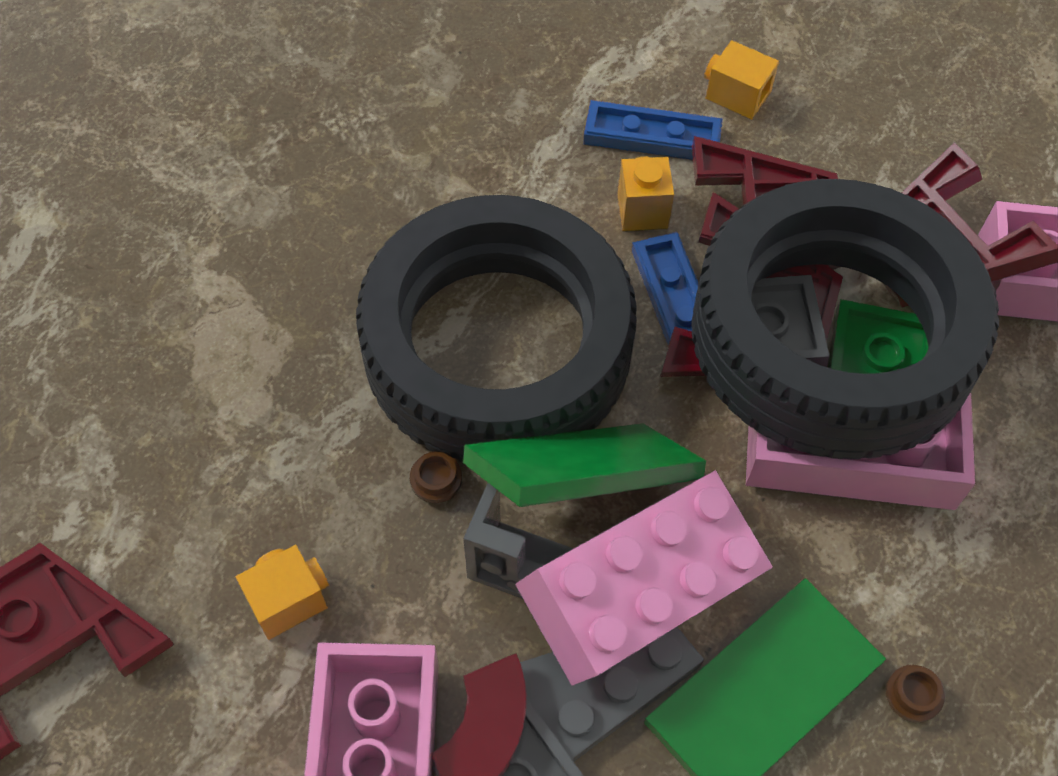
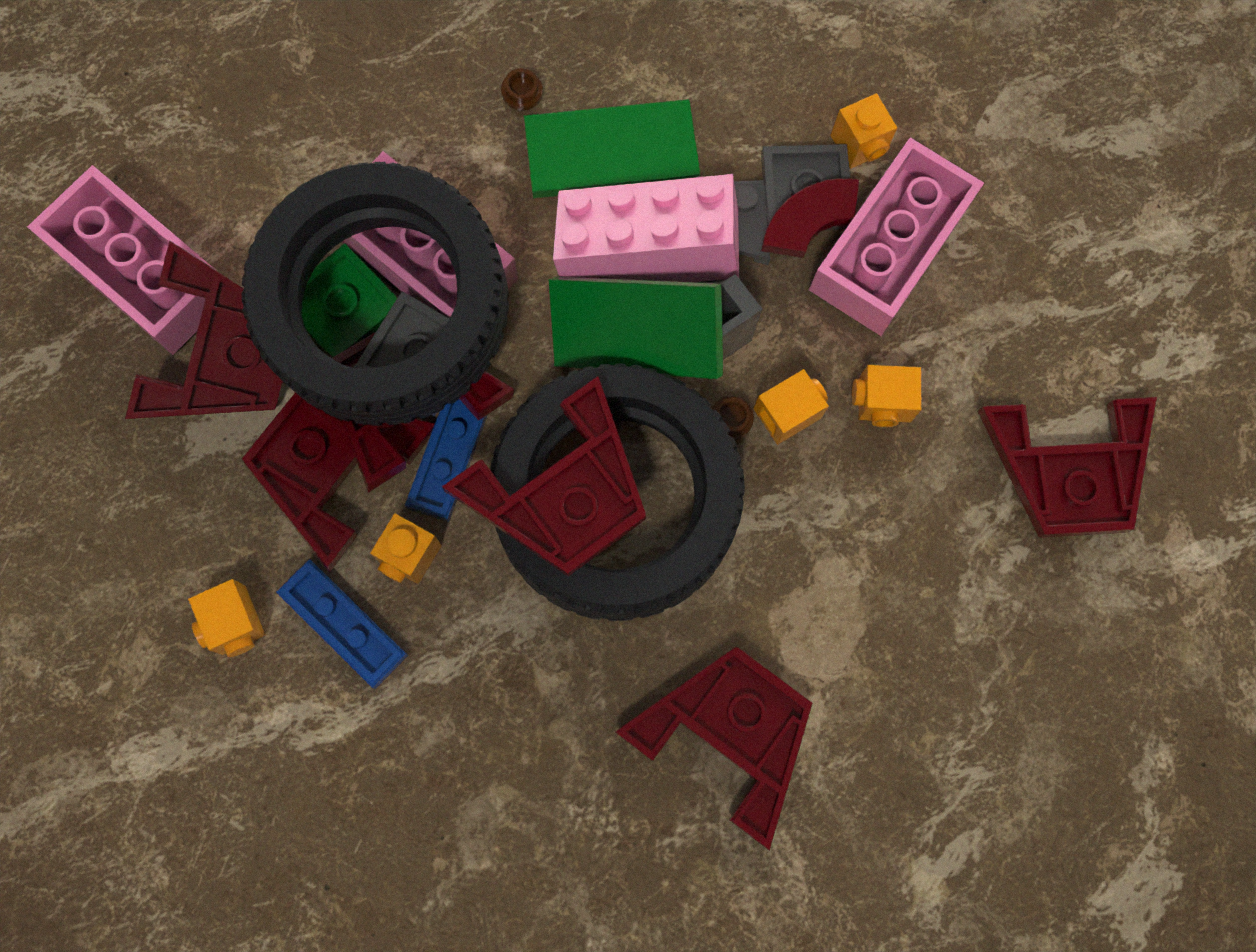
camera: 150 degrees left, 15 degrees up
(270, 237) = (745, 718): none -> dark red wing
(378, 508) = (791, 406): none -> light orange brick
(517, 252) = (573, 505): none -> dark red wing

